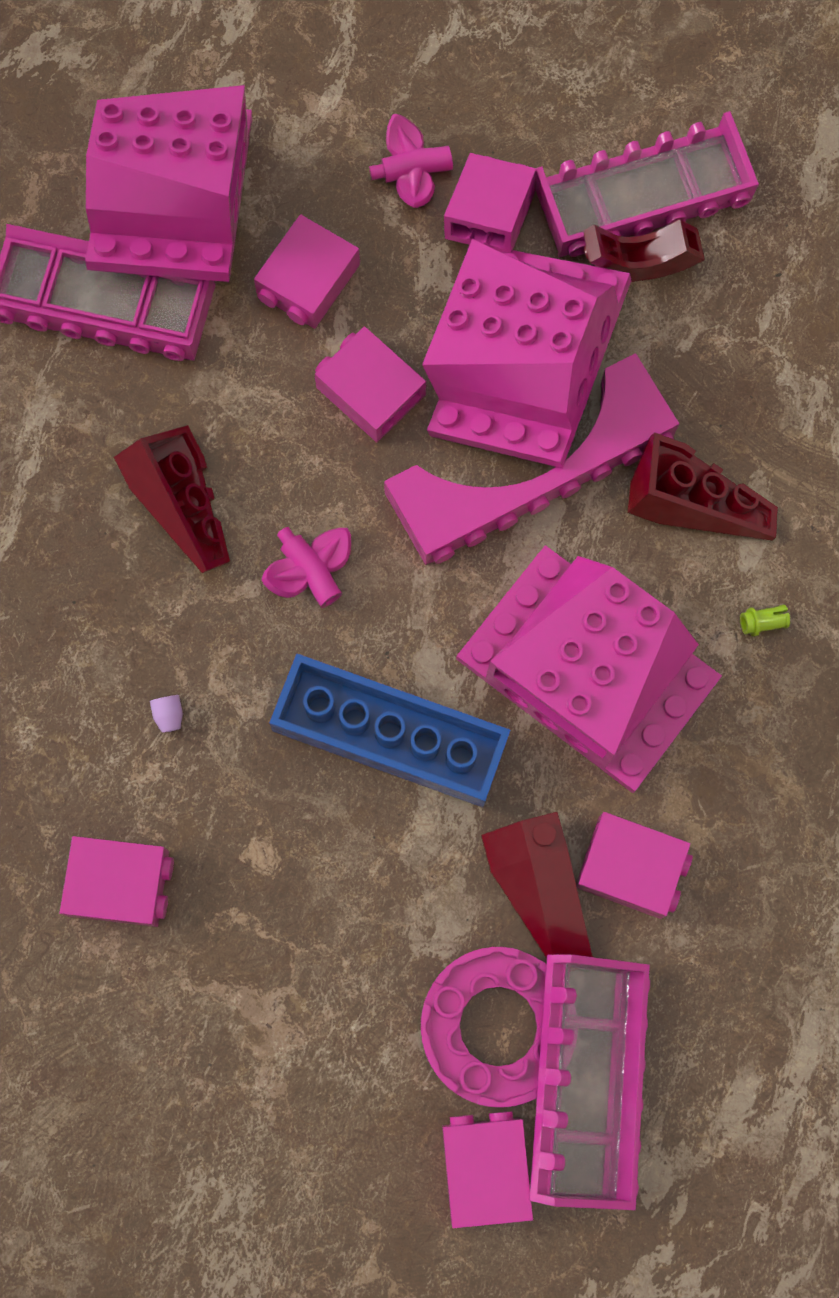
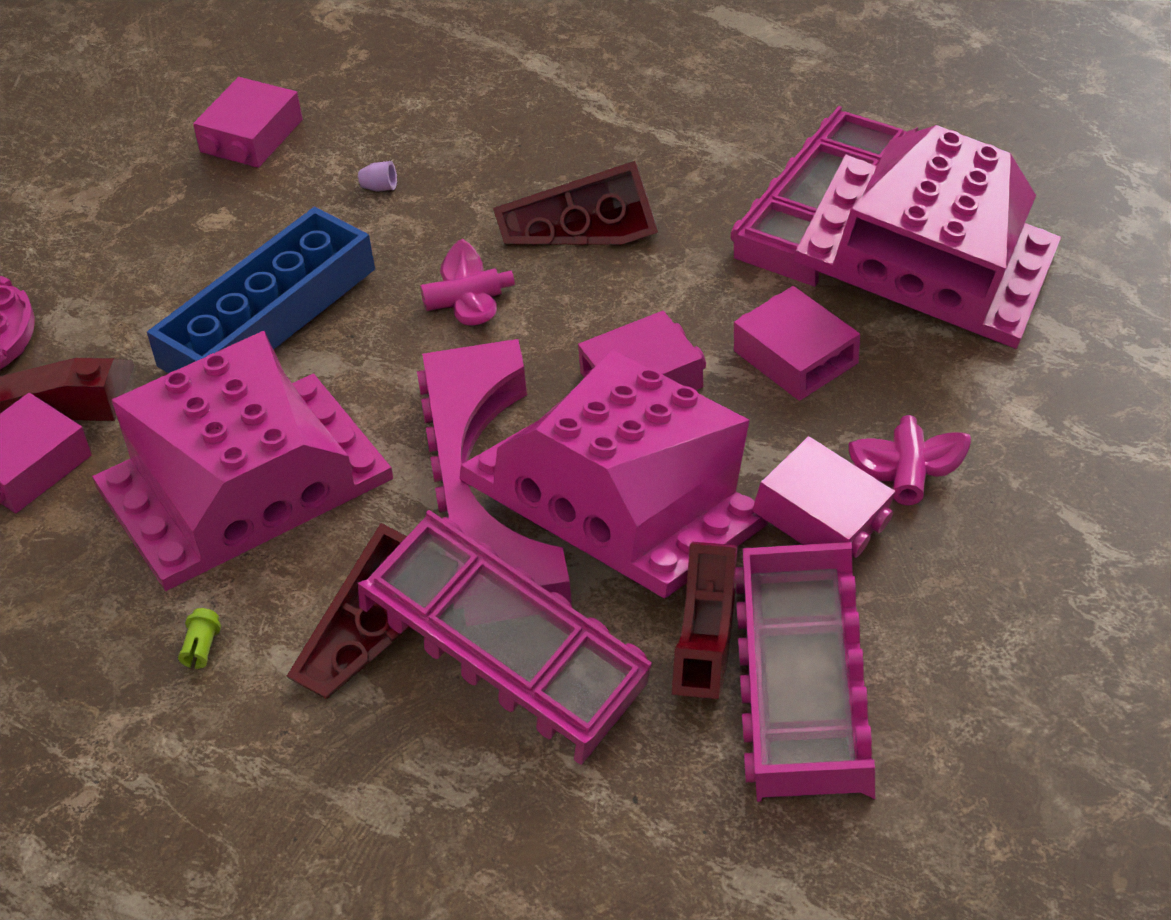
camera: 115 degrees right, 30 degrees down
(707, 379) = (508, 632): none -> window

